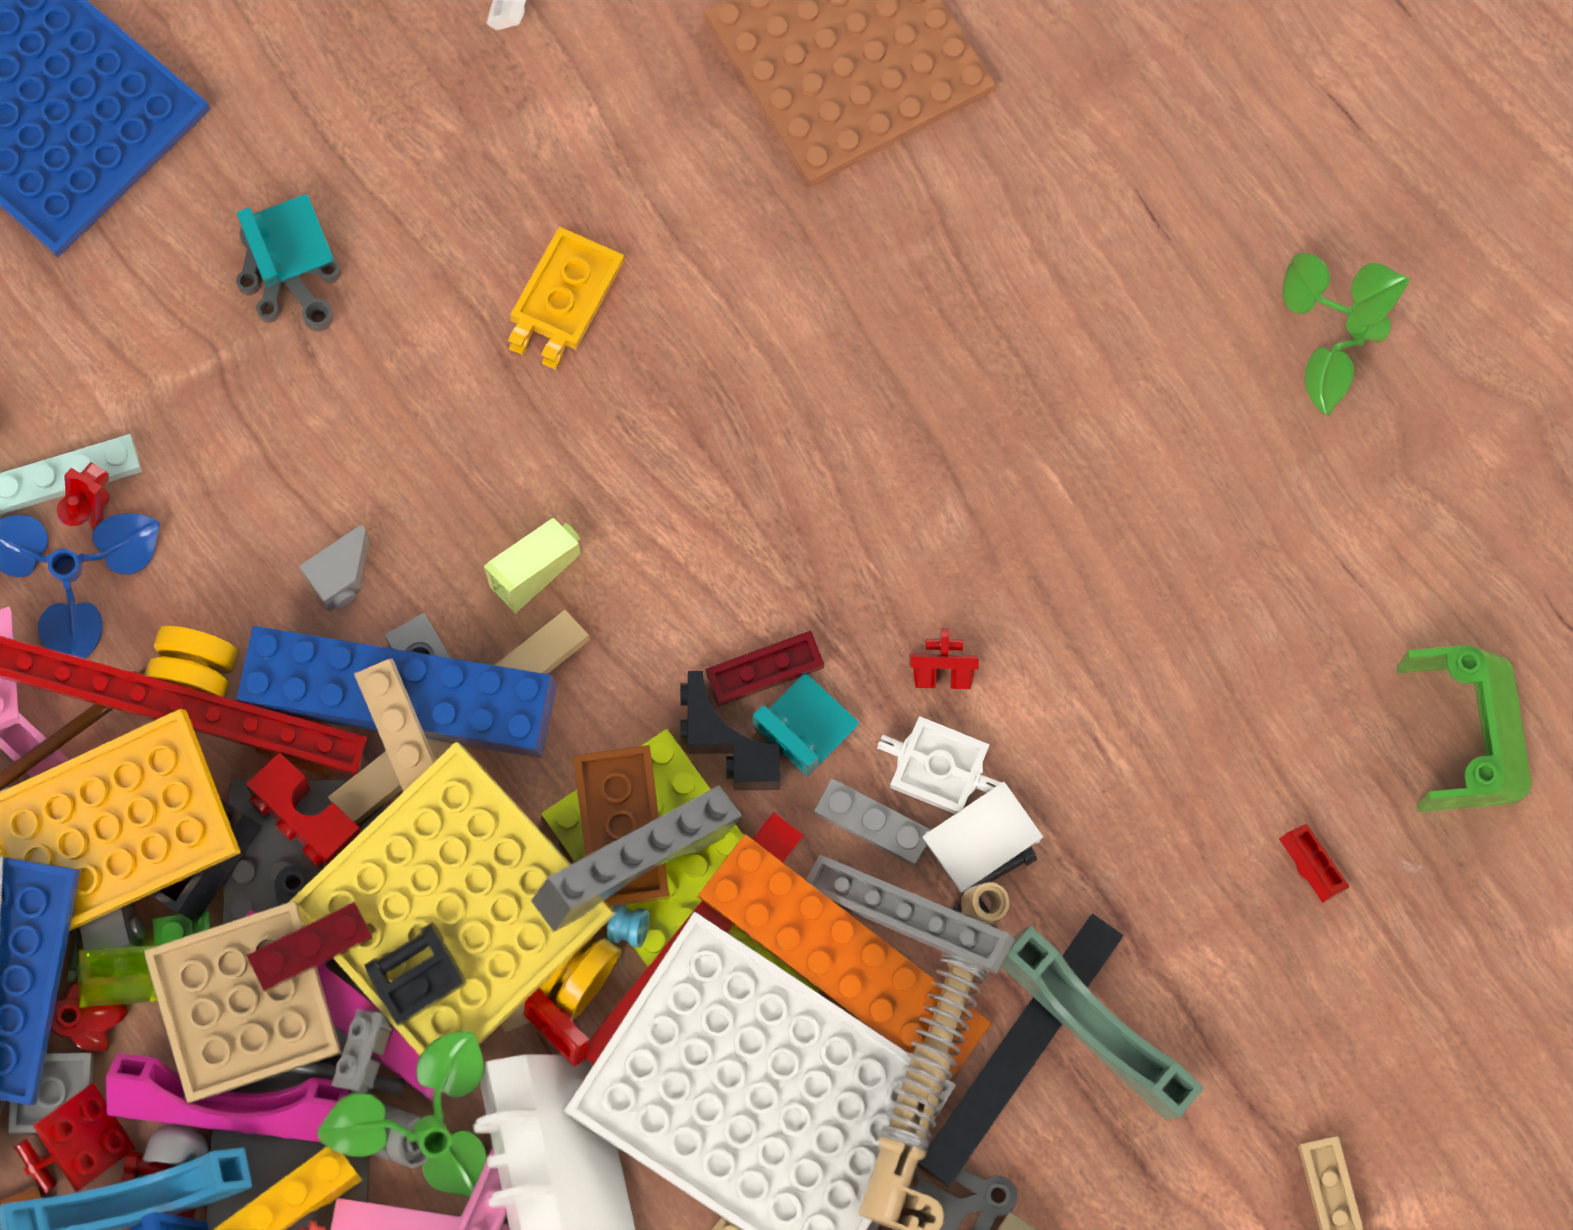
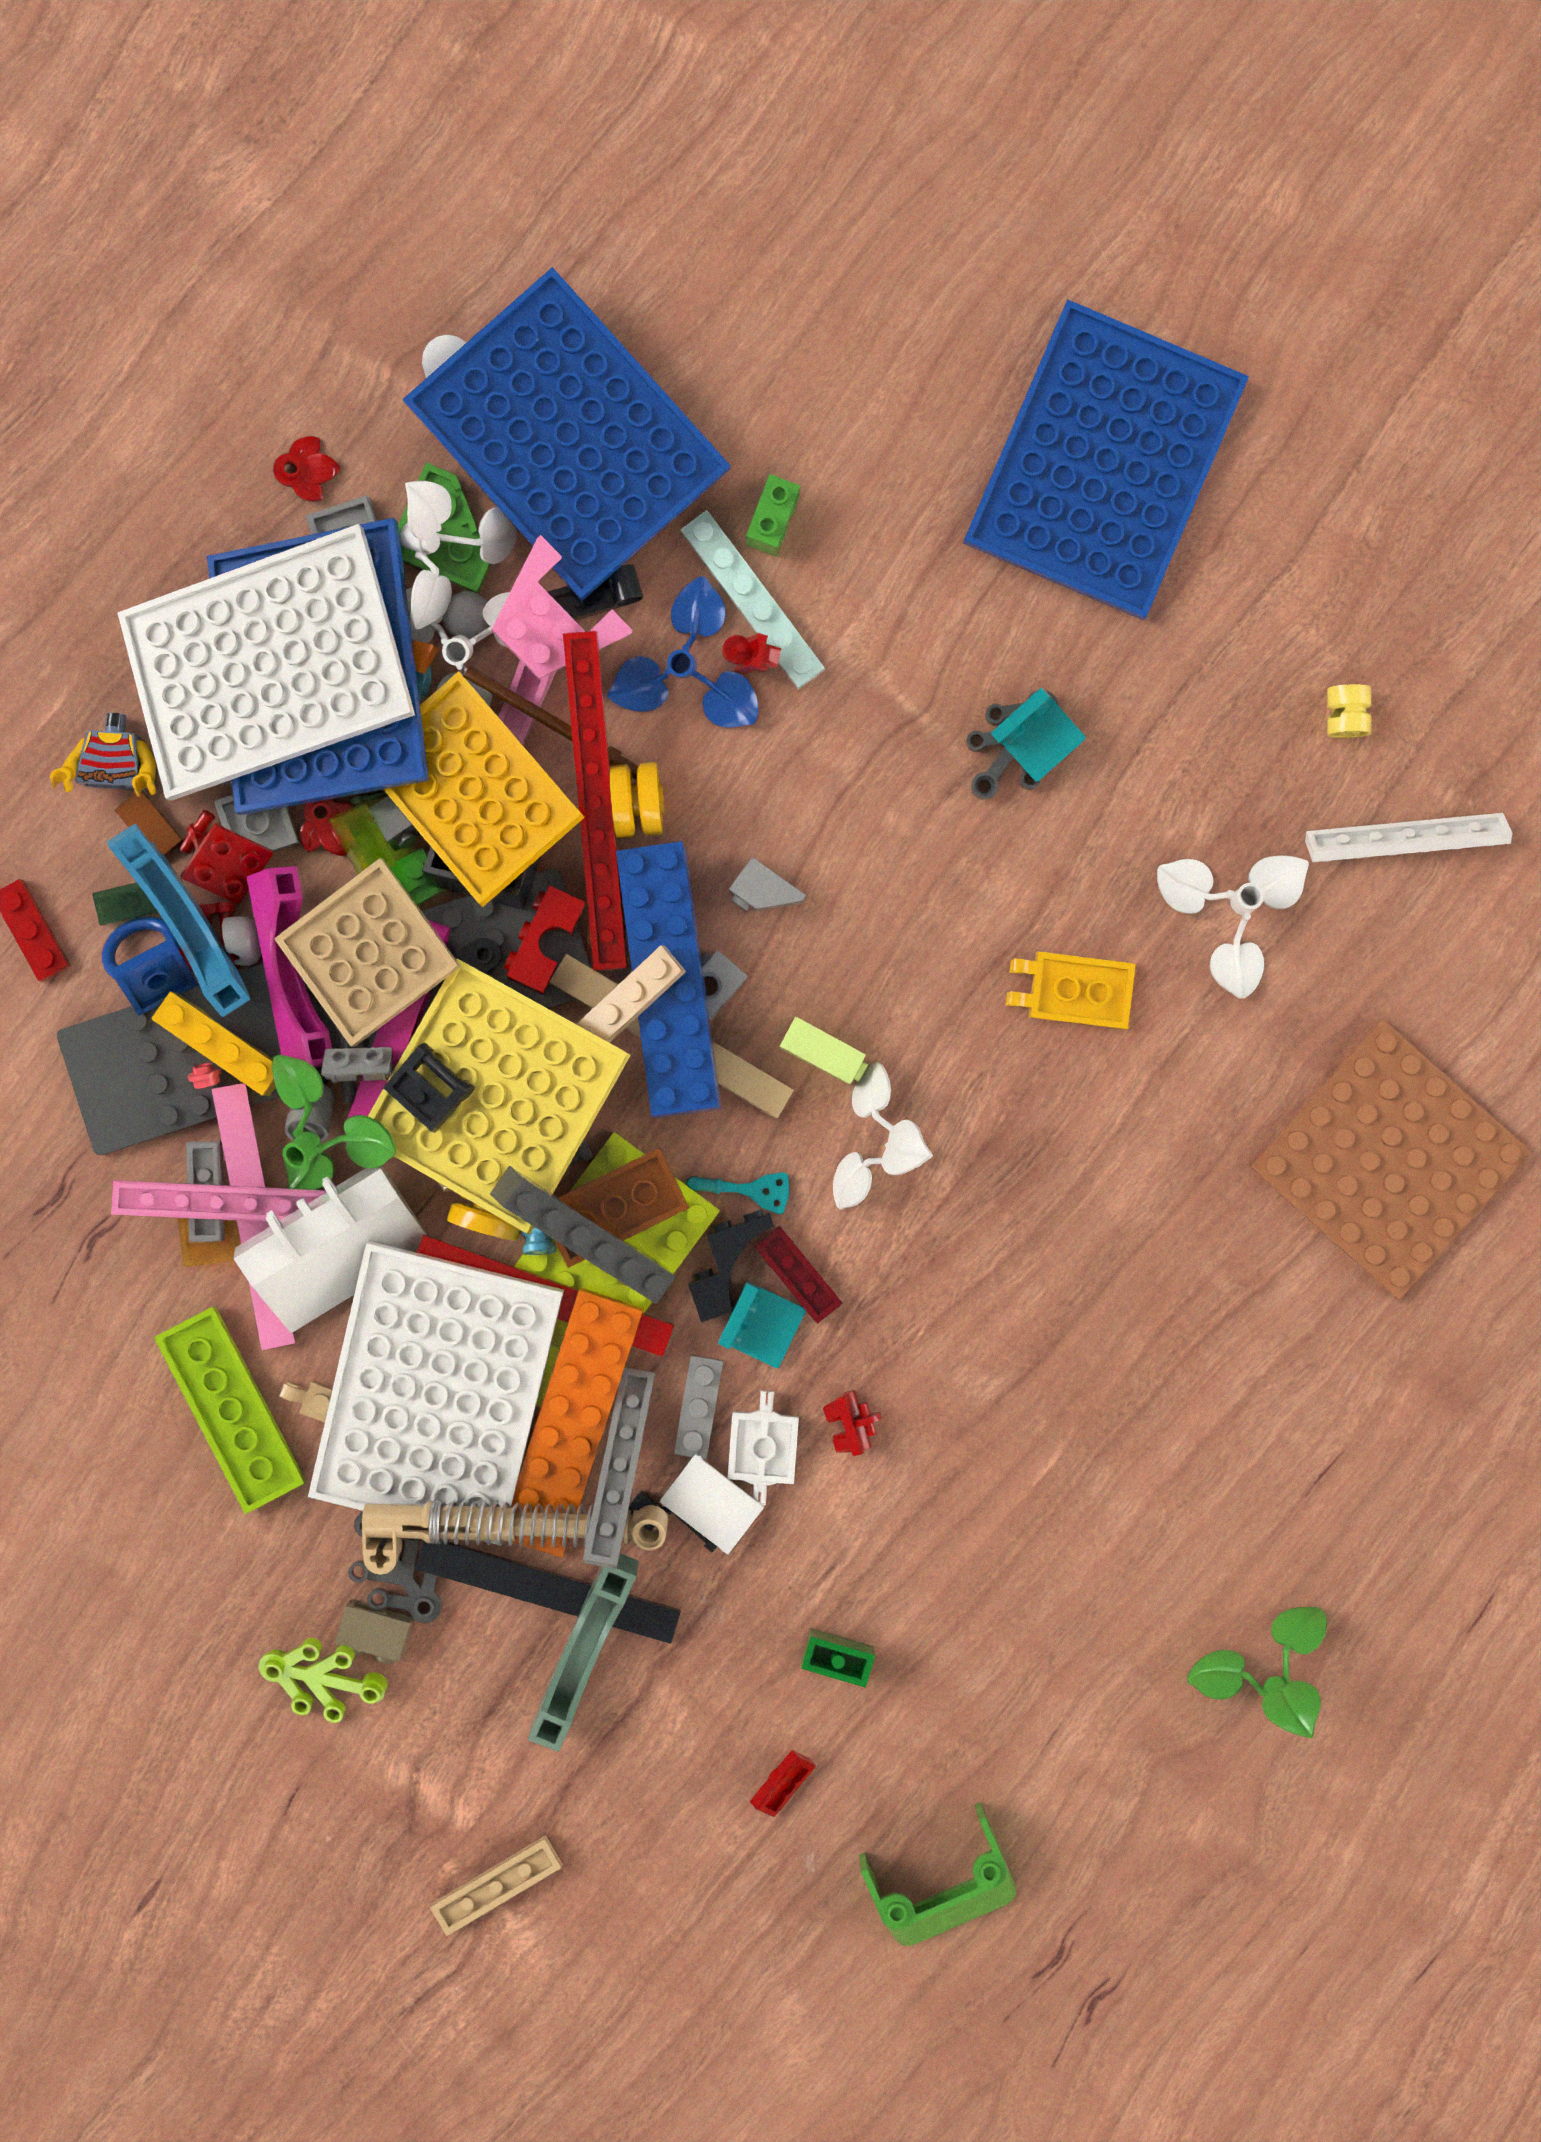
camera: 75 degrees right, 15 degrees up
(309, 947) = (423, 993): dark red plate -> none
(525, 71) = (1272, 880): none -> white plant
(556, 1027) = (433, 1214): red plate -> none
(657, 689) = (753, 1189): none -> teal piece
(664, 493) = (903, 1150): none -> white plant
(1192, 756) = (837, 1657): none -> green brick

